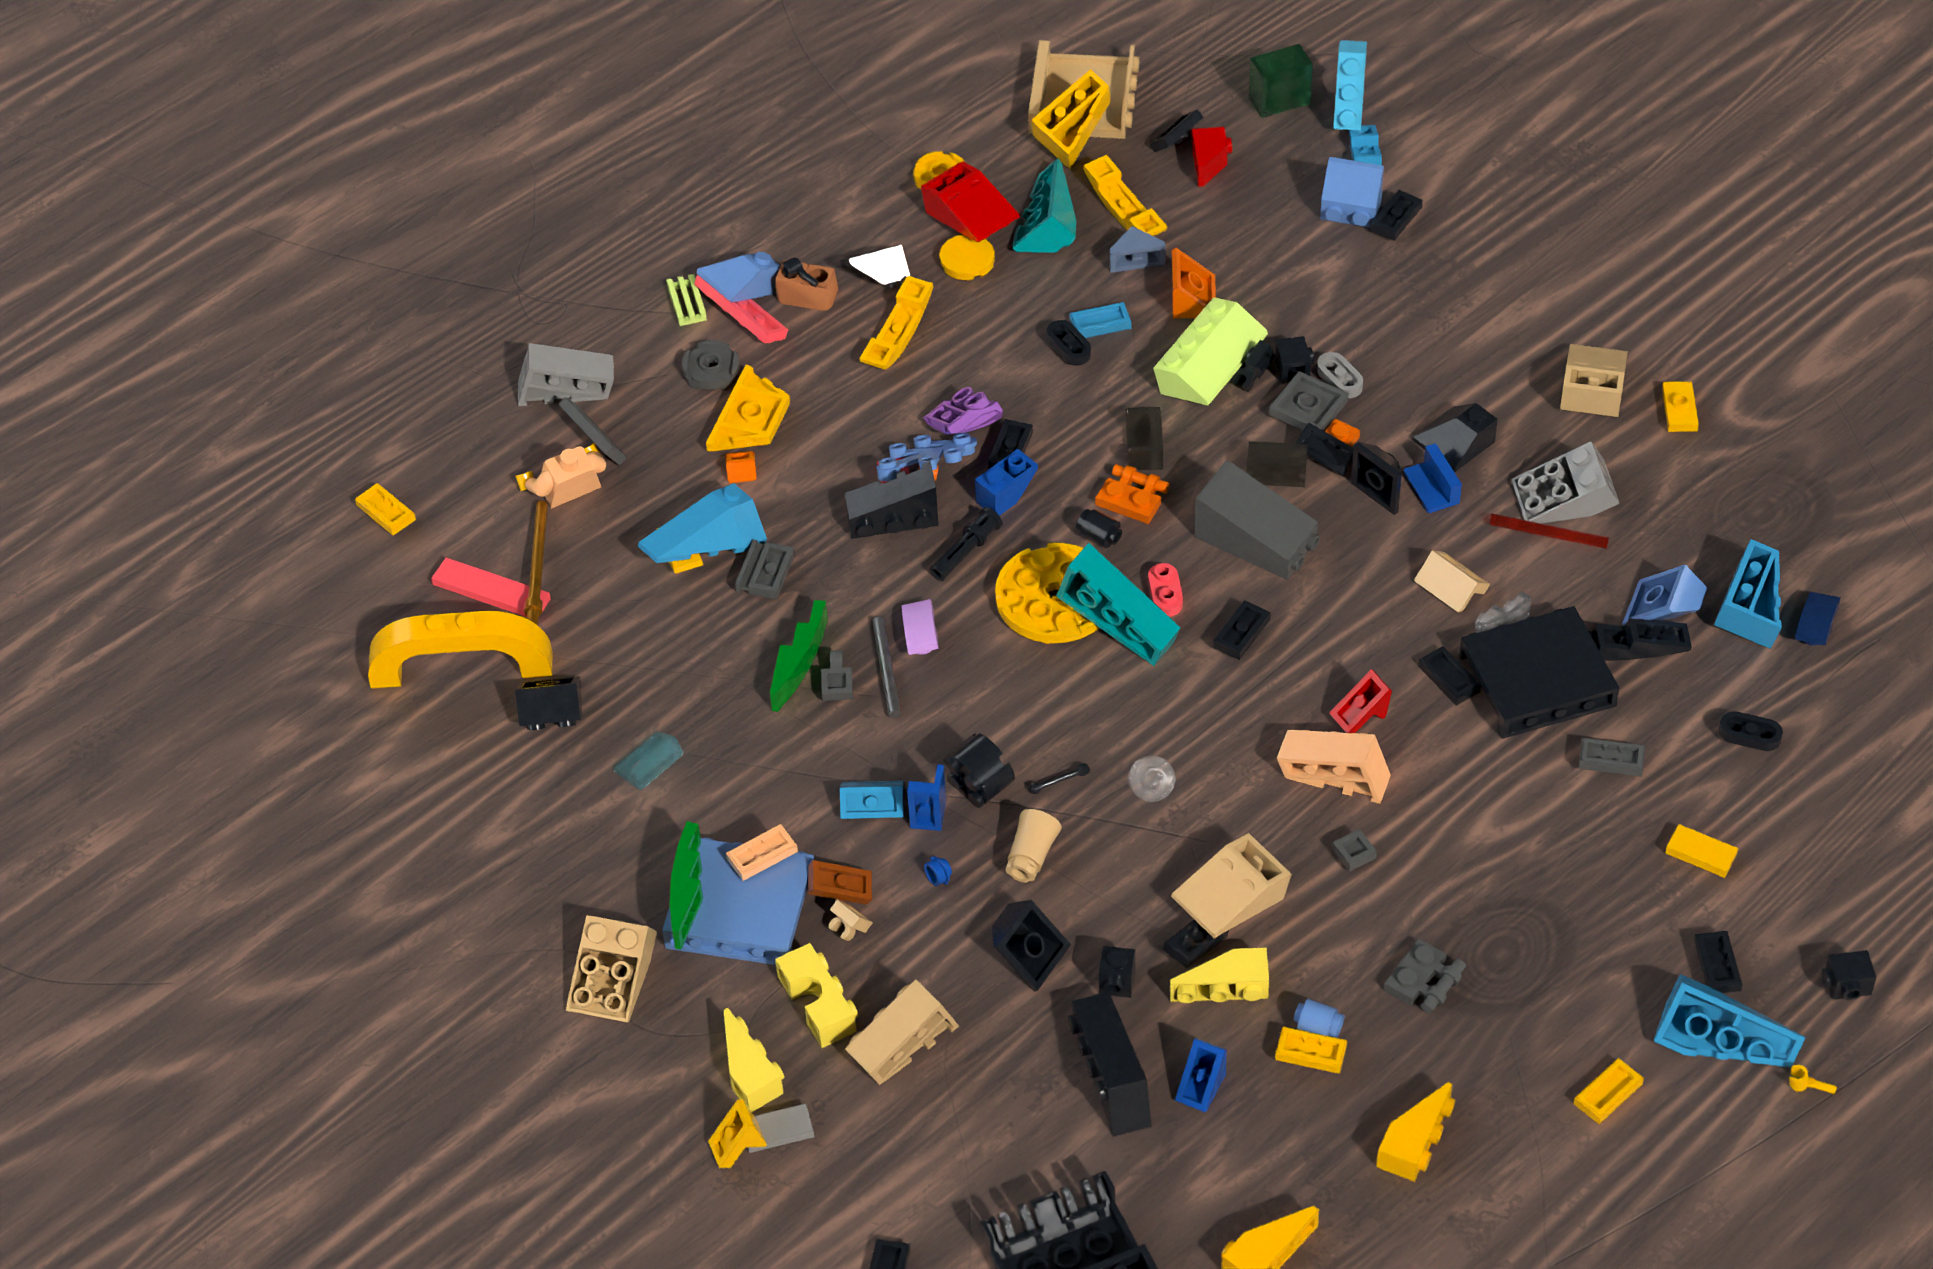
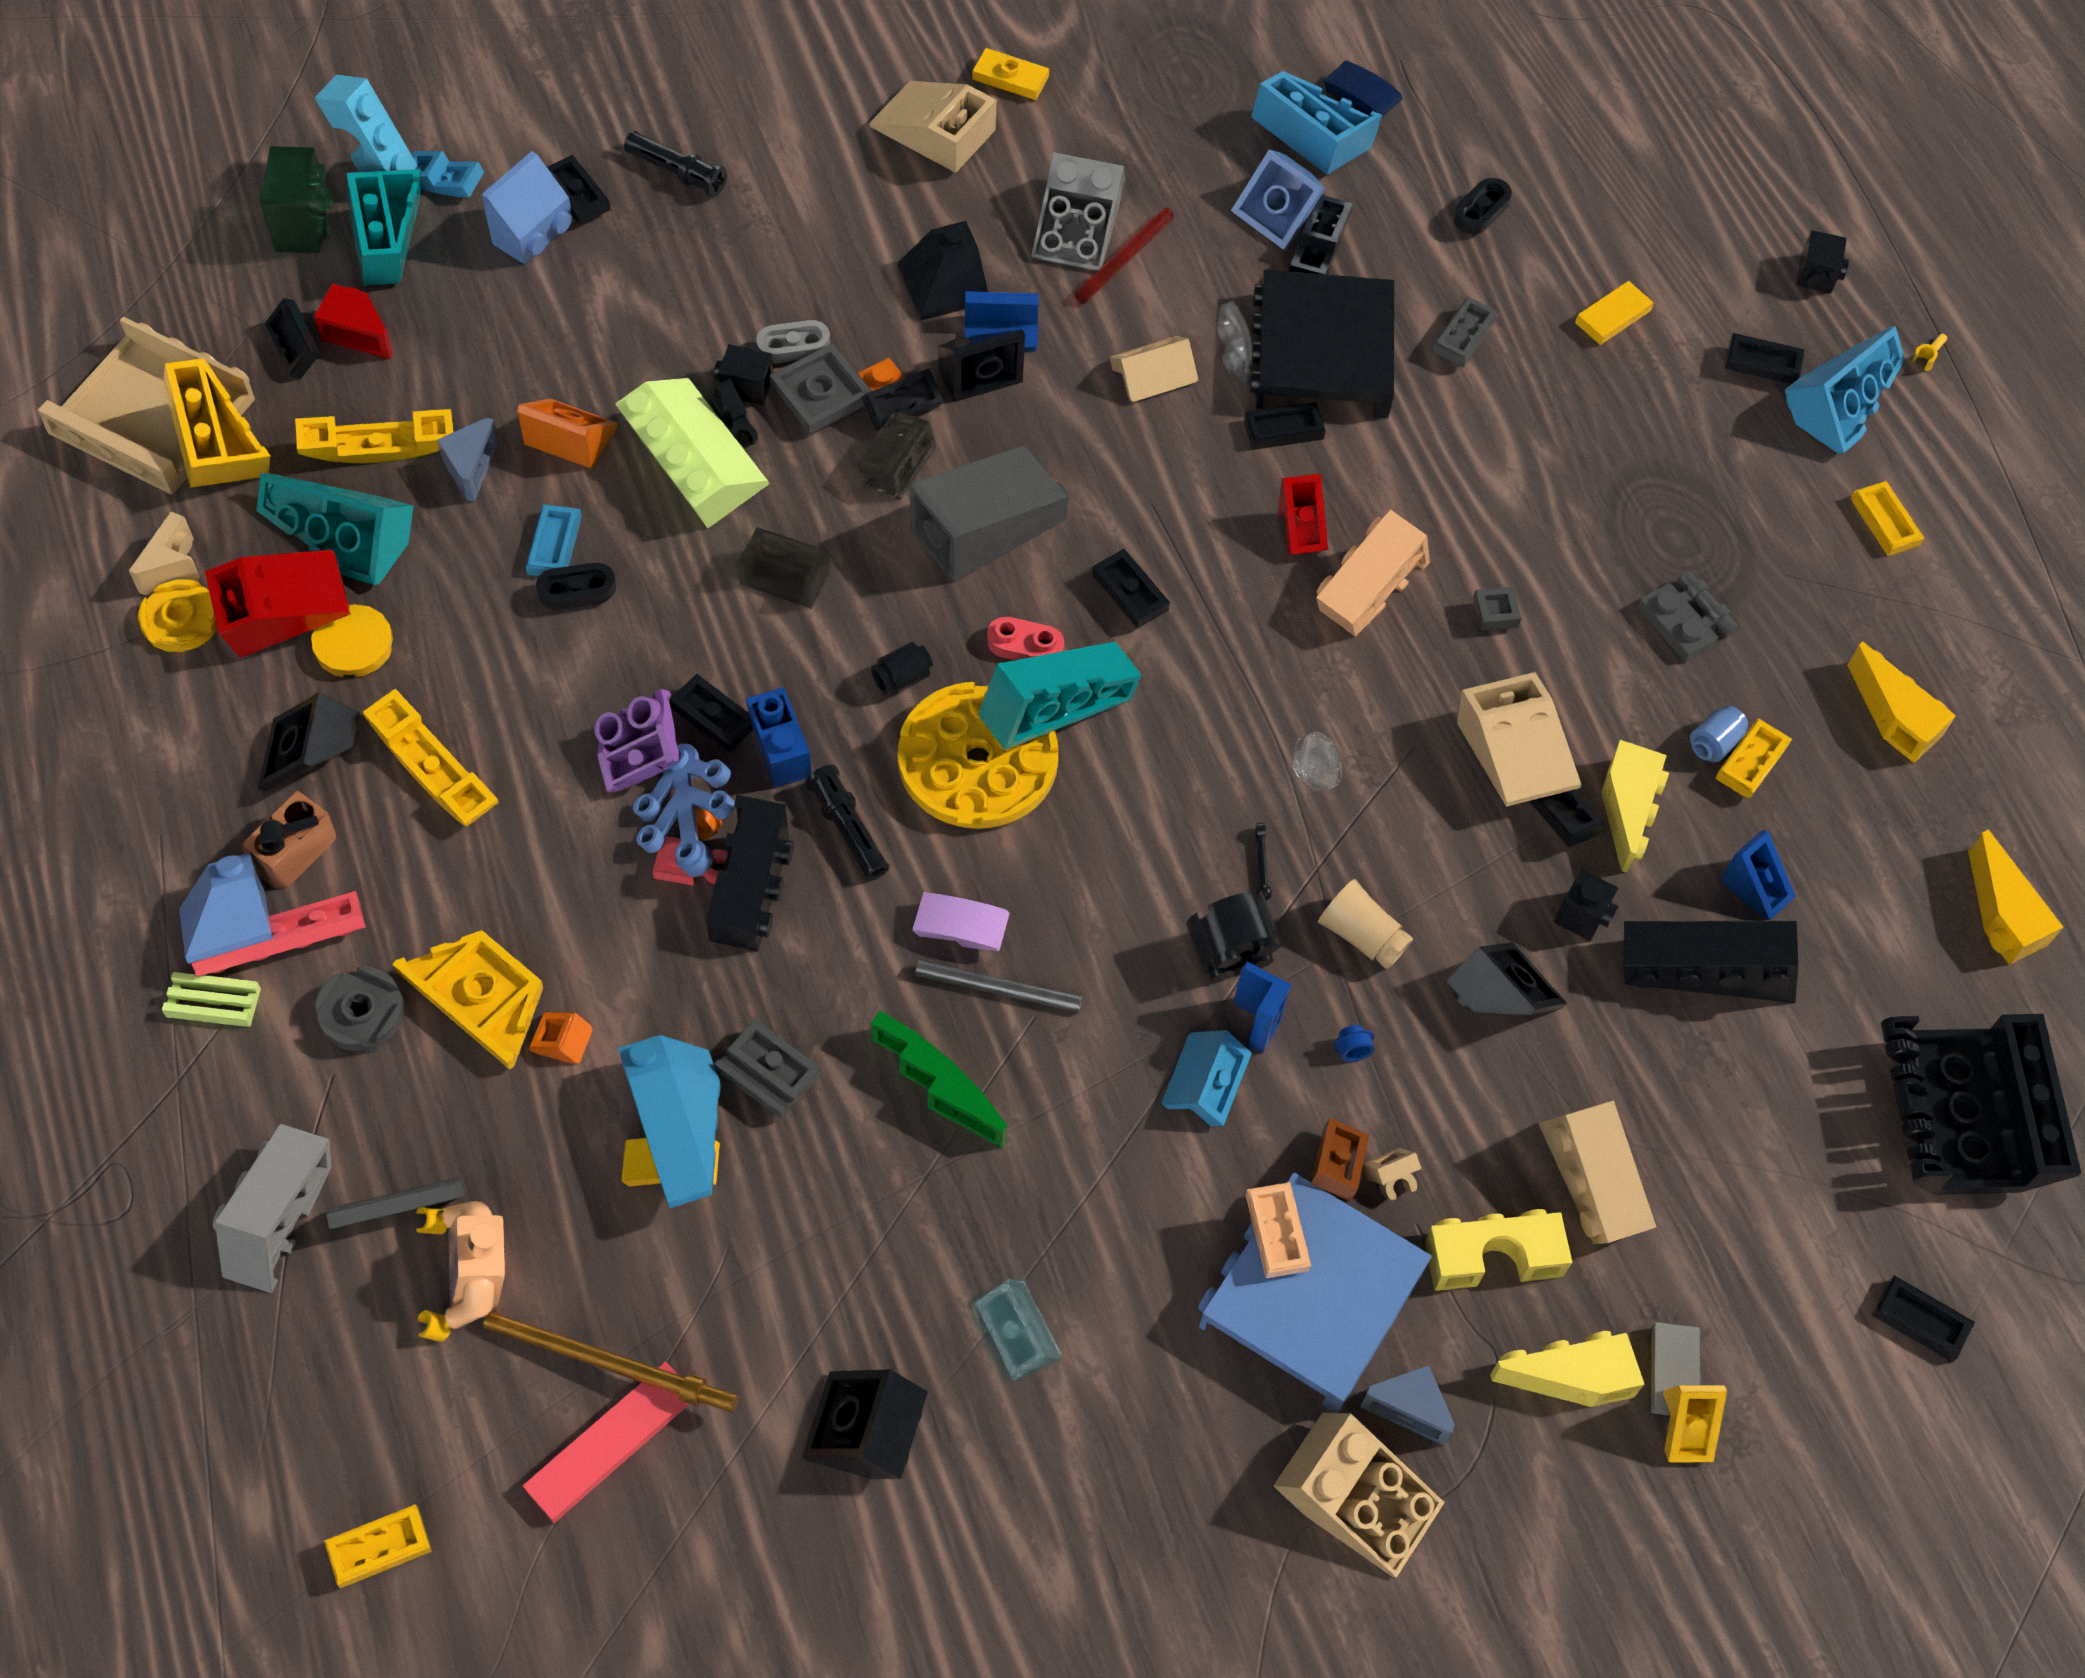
camera: 75 degrees left, 10 degrees up
(458, 633) = (704, 1573): yellow arch -> none
(685, 887) = (1314, 1350): green slope -> none
(685, 979) = (1413, 1403): none -> sand blue slope
(836, 680) = (1001, 1050): dark grey plate -> none
(975, 143) = (165, 556): none -> tan slope
(1129, 500) = (862, 626): orange plate -> none
(1294, 131) = (382, 221): none -> teal wedge
(1456, 264) = (688, 167): none -> black pin

